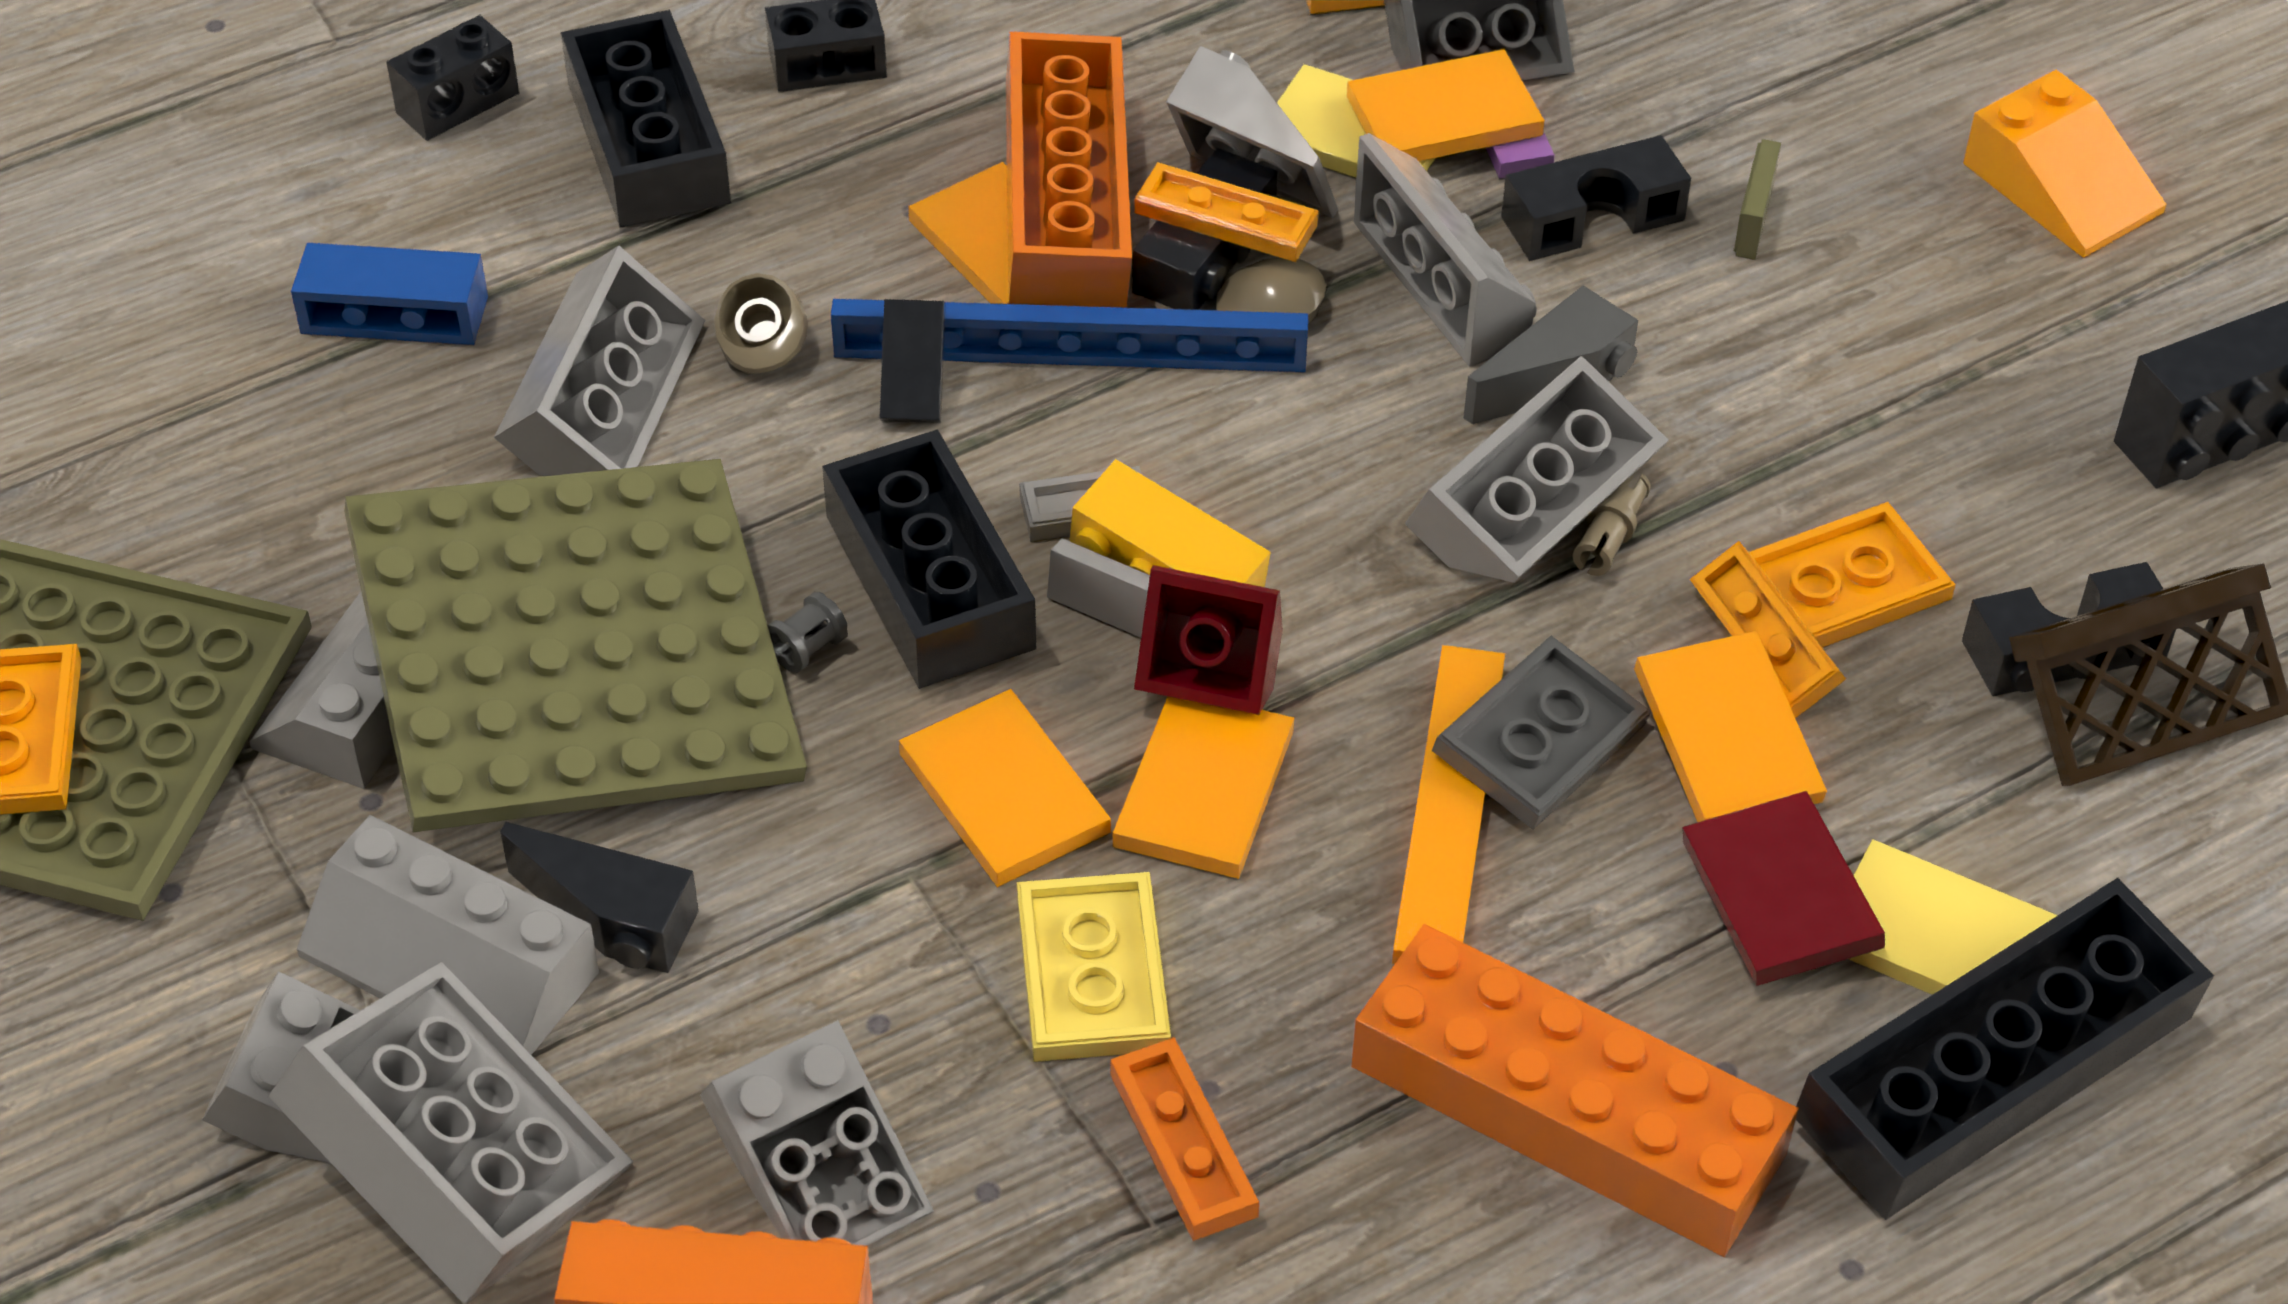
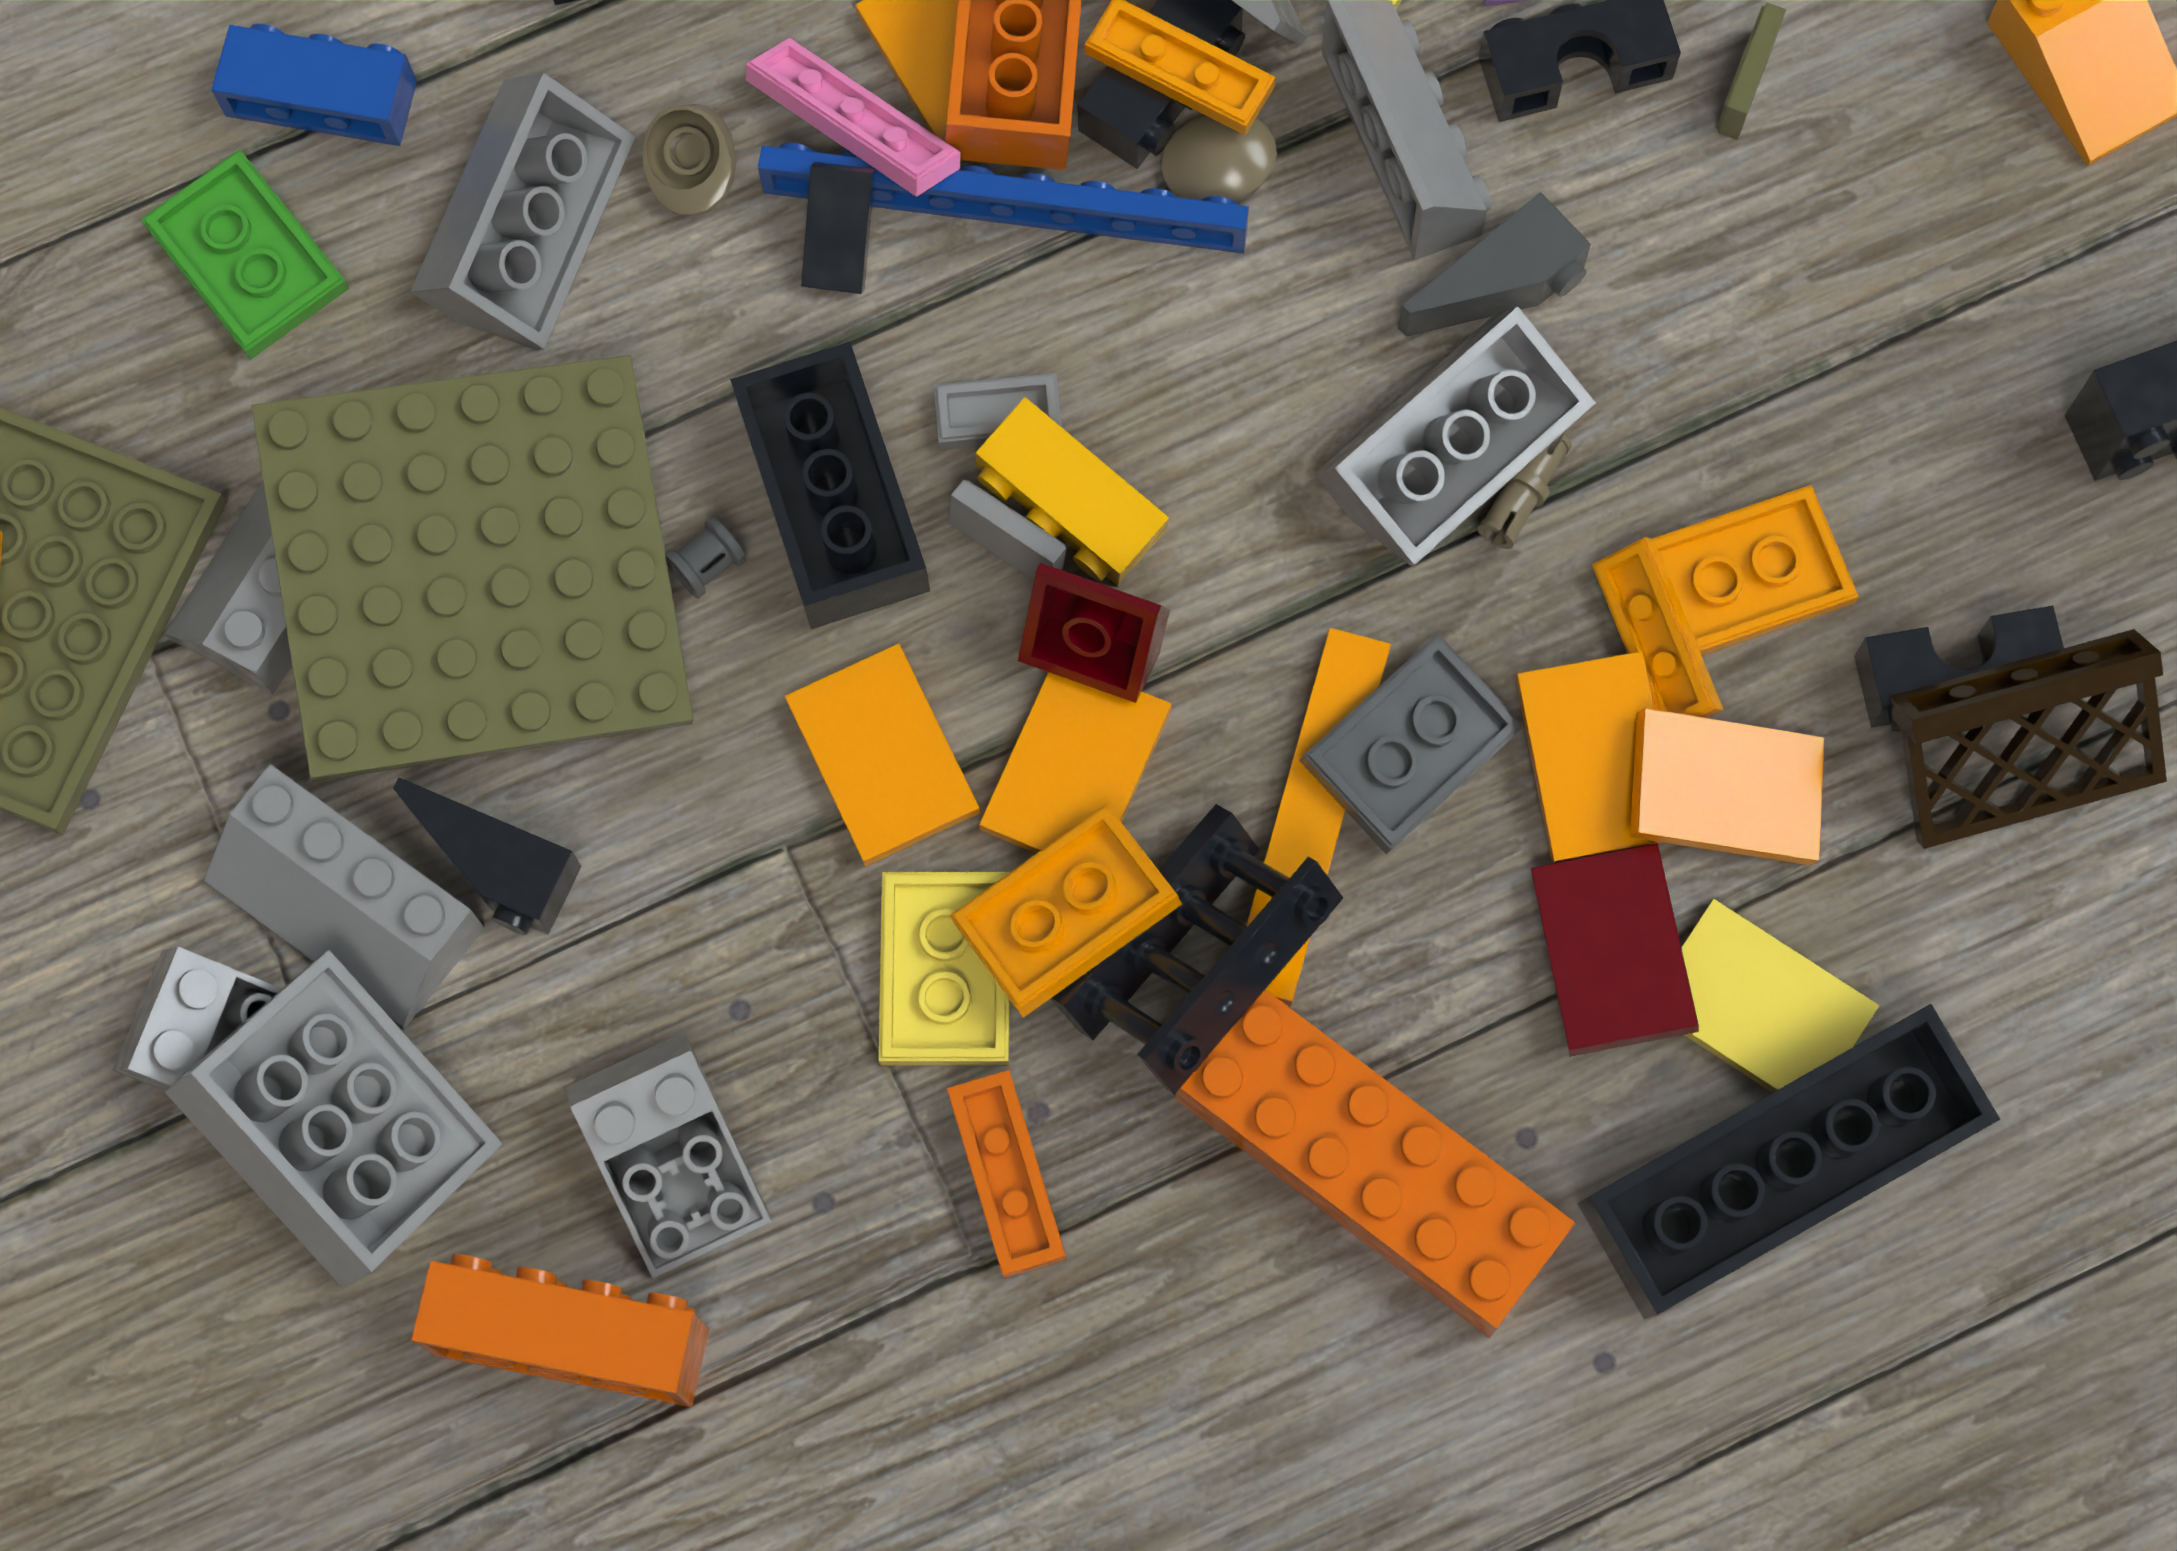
camera: 10 degrees right, 25 degrees up
(324, 432) = (245, 254): none -> bright green tile
(918, 275) = (853, 117): none -> bright pink tile
(1214, 884) = (1065, 910): none -> light orange tile
(1323, 880) = (1215, 1001): none -> black fence
(1865, 740) = (1727, 787): none -> light orange tile

